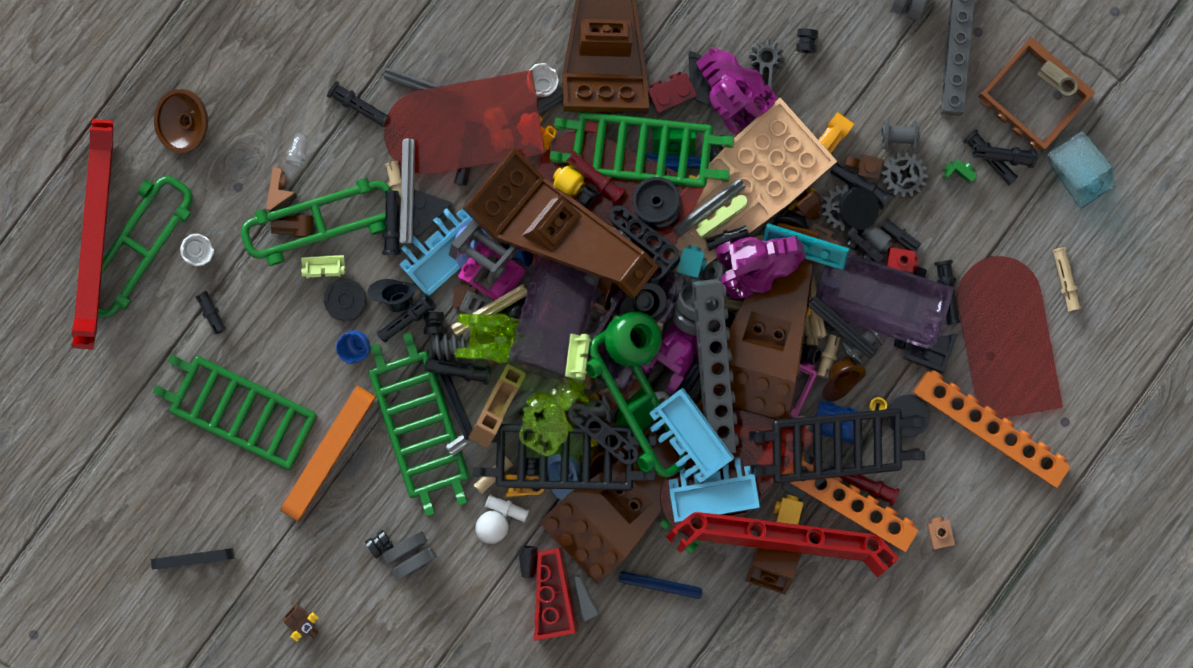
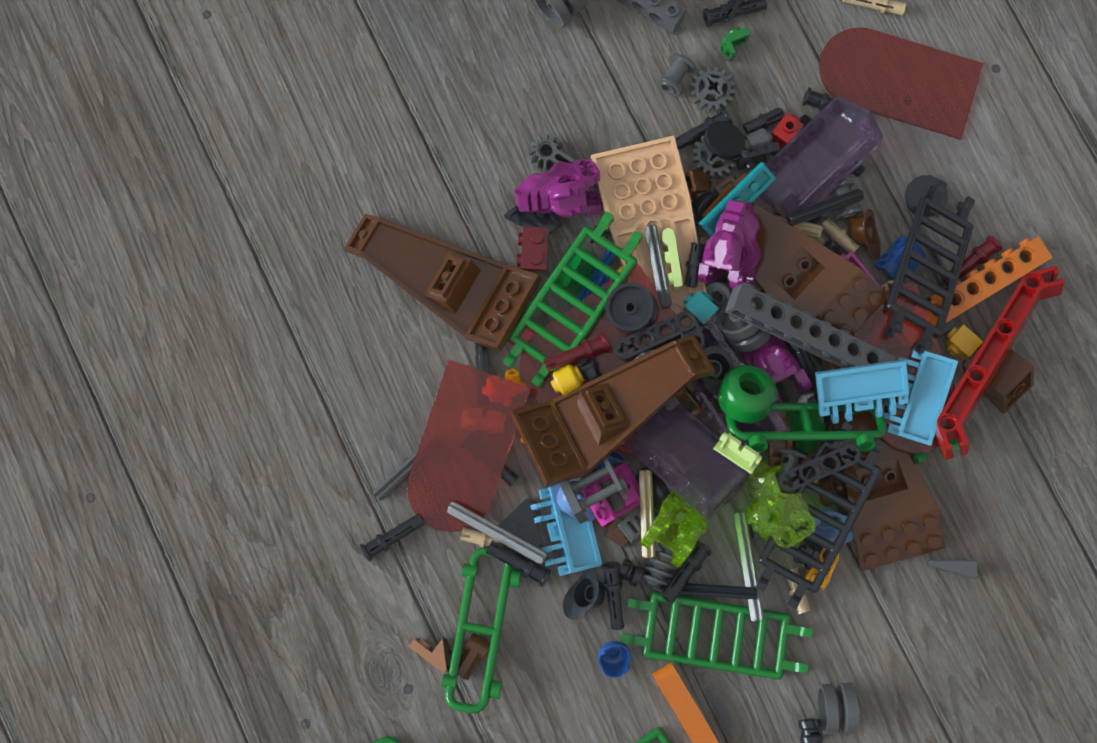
camera: 65 degrees left, 5 degrees down
(173, 123) = (317, 719): reddish brown dish -> none
(297, 150) = (404, 615): clear cone -> none
(323, 265) = (527, 640): yellowish green hinge -> none
(345, 299) = (565, 643): black tile -> none
(491, 527) = (845, 617): white hair -> none
(497, 405) = (753, 567): medium nougat arch -> none
(507, 508) = (834, 594): white pin -> none
(528, 560) = (892, 599): black cone -> none
(545, 80) = (461, 353): white hair -> none
(554, 599) = (946, 596): red wedge -> none
(660, 585) = (972, 491): dark blue axle -> none
(807, 40) = (551, 111): black wheel -> none
(835, 132) = (642, 125): light orange piece -> none
(867, 167) = (686, 118): reddish brown plate -> none
(883, 405) = (908, 214): yellow hinge -> none
(932, 358) = (885, 152): black wing -> none
(940, 533) = (1046, 221): nougat brick -> none
(1051, 475) = (1039, 97): orange brick -> none

